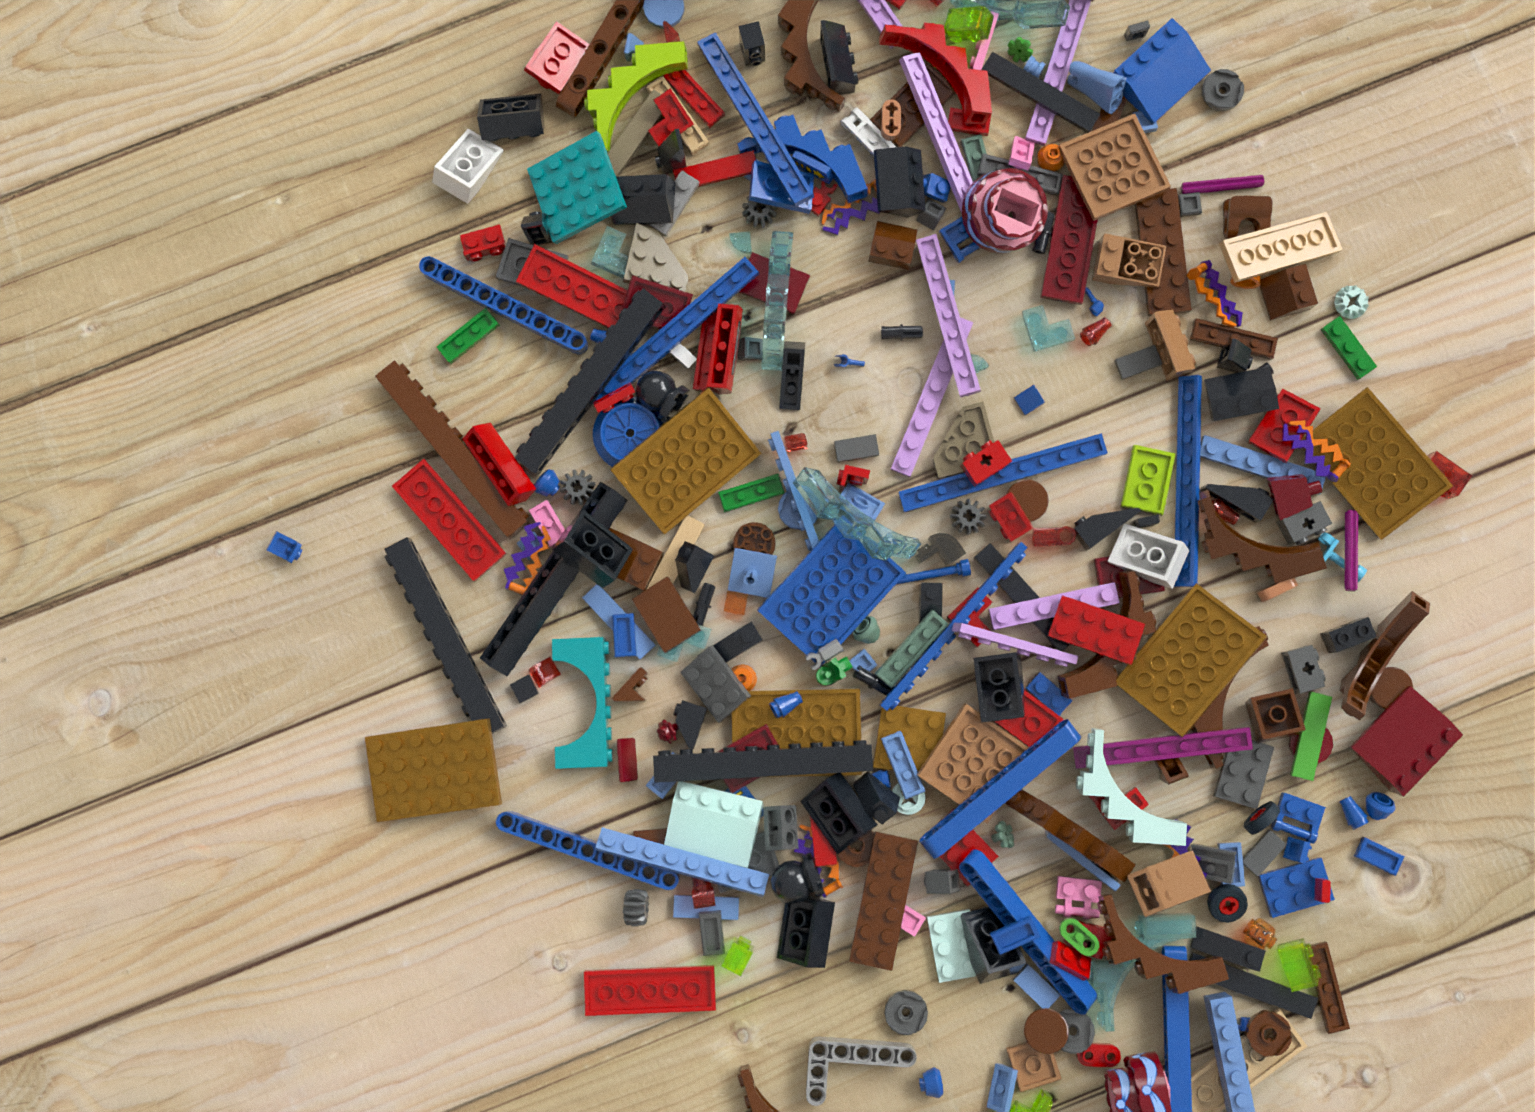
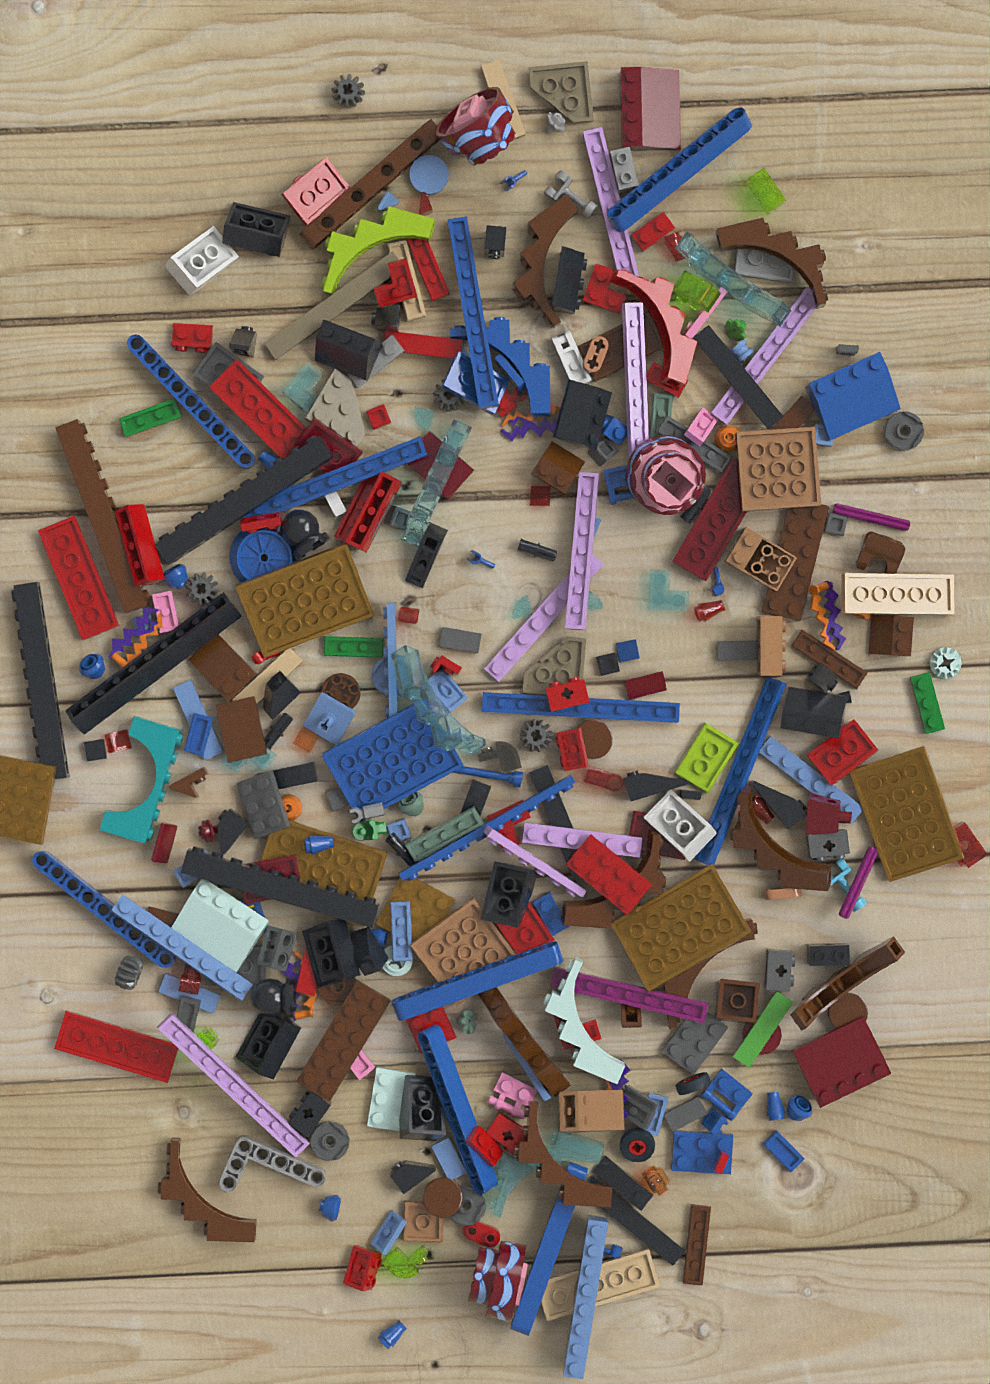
camera: 15 degrees right, 5 degrees up
(492, 604) = (92, 666): none -> blue cone
(576, 187) = (292, 318): teal plate -> none
(593, 549) = (196, 652): black slope -> none
(659, 538) = (258, 658): none -> red hand
(696, 257) = (378, 417): none -> red tile
(785, 987) = (233, 1084): none -> lavender plate
(789, 652) = (337, 799): none -> dark grey tile
(875, 64) = (598, 292): none -> red plate
(875, 1002) = (304, 1123): none -> black brick
(885, 278) = (540, 496): none -> clear red slope
(907, 395) = (522, 608): none -> clear light blue tile
(941, 881) = (399, 1041): dark grey brick -> none
(1003, 1017) = (410, 1173): none -> black slope
(1013, 420) = (608, 664): none -> black tile
(1014, 935) = (443, 1108): blue tile -> none
(1059, 428) = (645, 685): none -> dark red slope
(1078, 936) = (498, 1128): bright green plate -> none
(1099, 85) = (794, 393): medium blue piece -> none
(1270, 1046) = (641, 1266): reddish brown plate -> none
(1298, 964) = (678, 1217): clear neon green brick -> none
(1309, 443) = (855, 777): piece -> none

